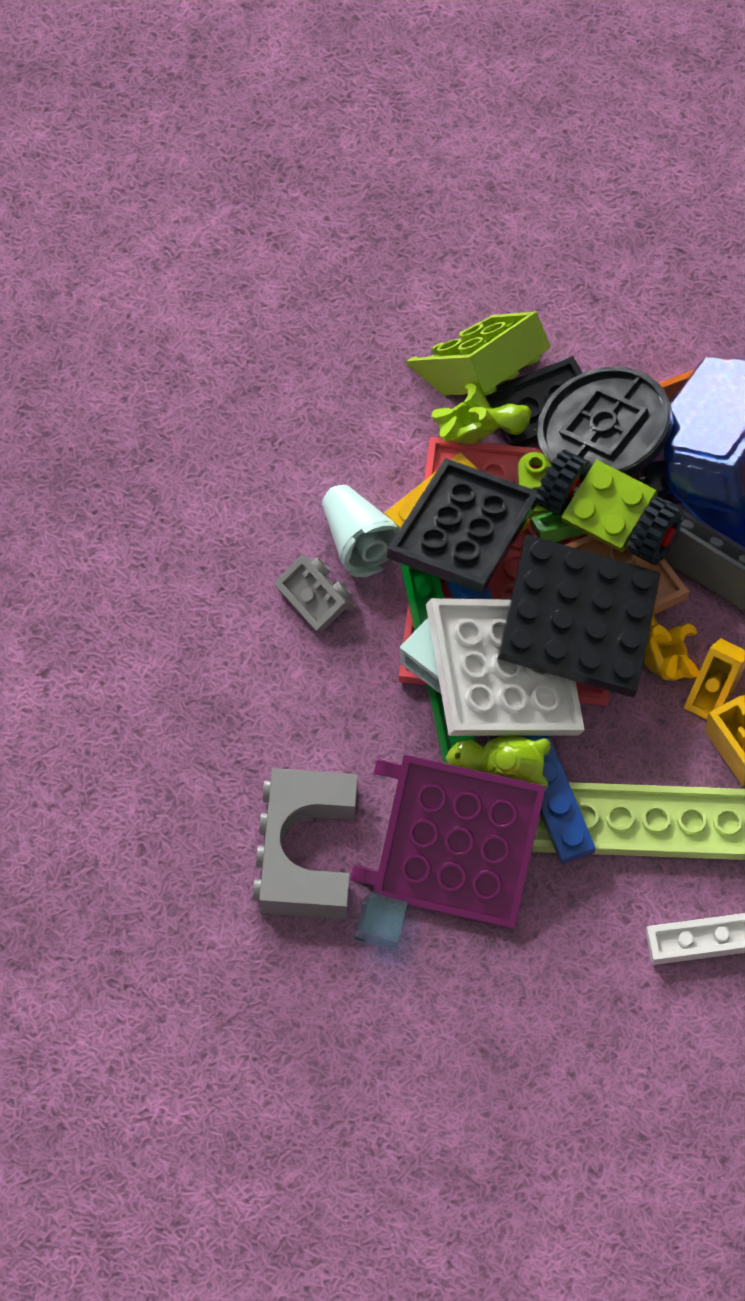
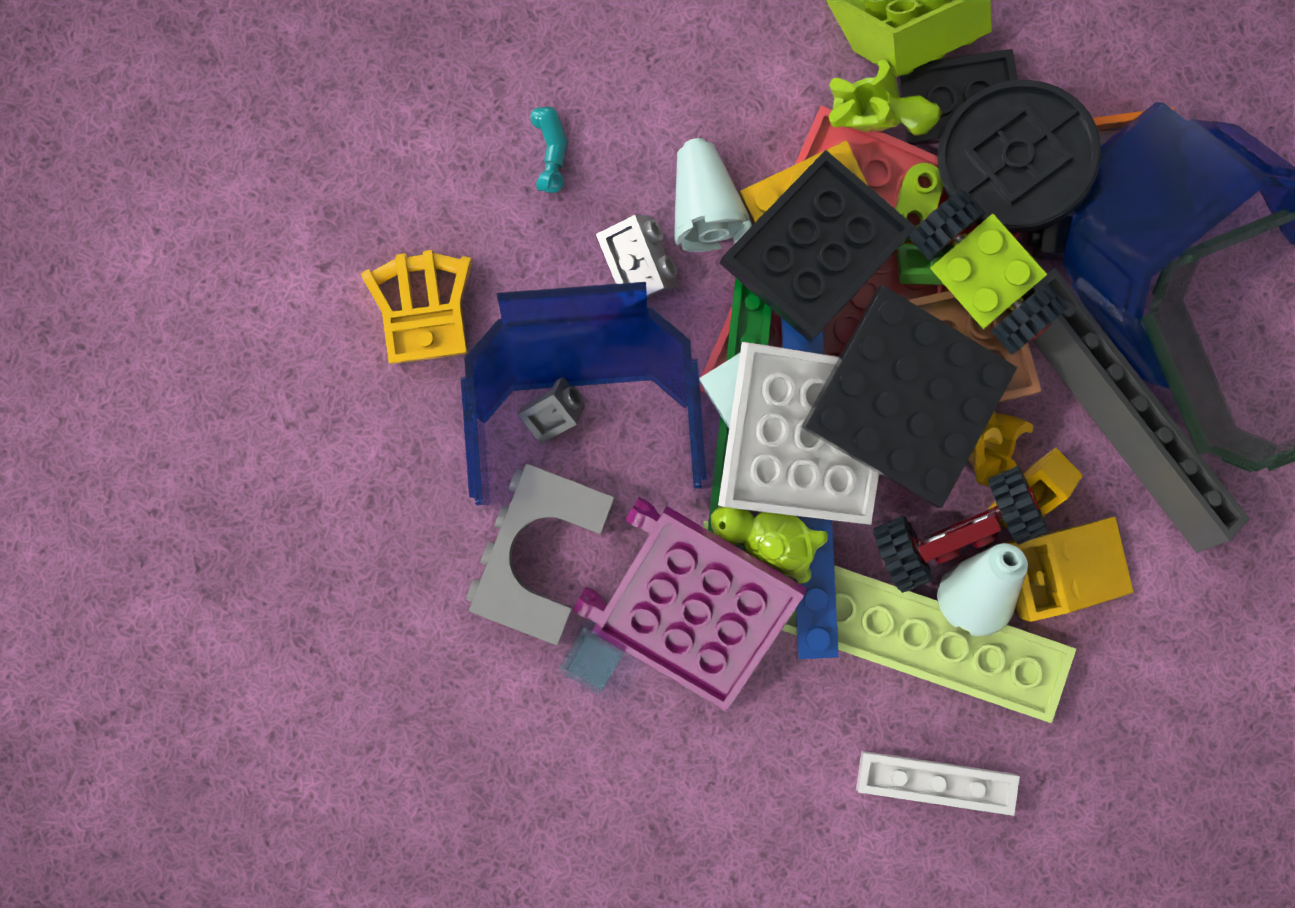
camera: 10 degrees right, 25 degrees up
(148, 696) = (423, 331): none -> yellow plate
(206, 510) = (549, 122): none -> teal arm
(280, 728) = (553, 411): none -> dark grey bracket
(289, 656) = (589, 340): none -> clear blue piece
(674, 707) = (908, 556): none -> black plate
(700, 754) = (983, 589): none -> light aqua cone

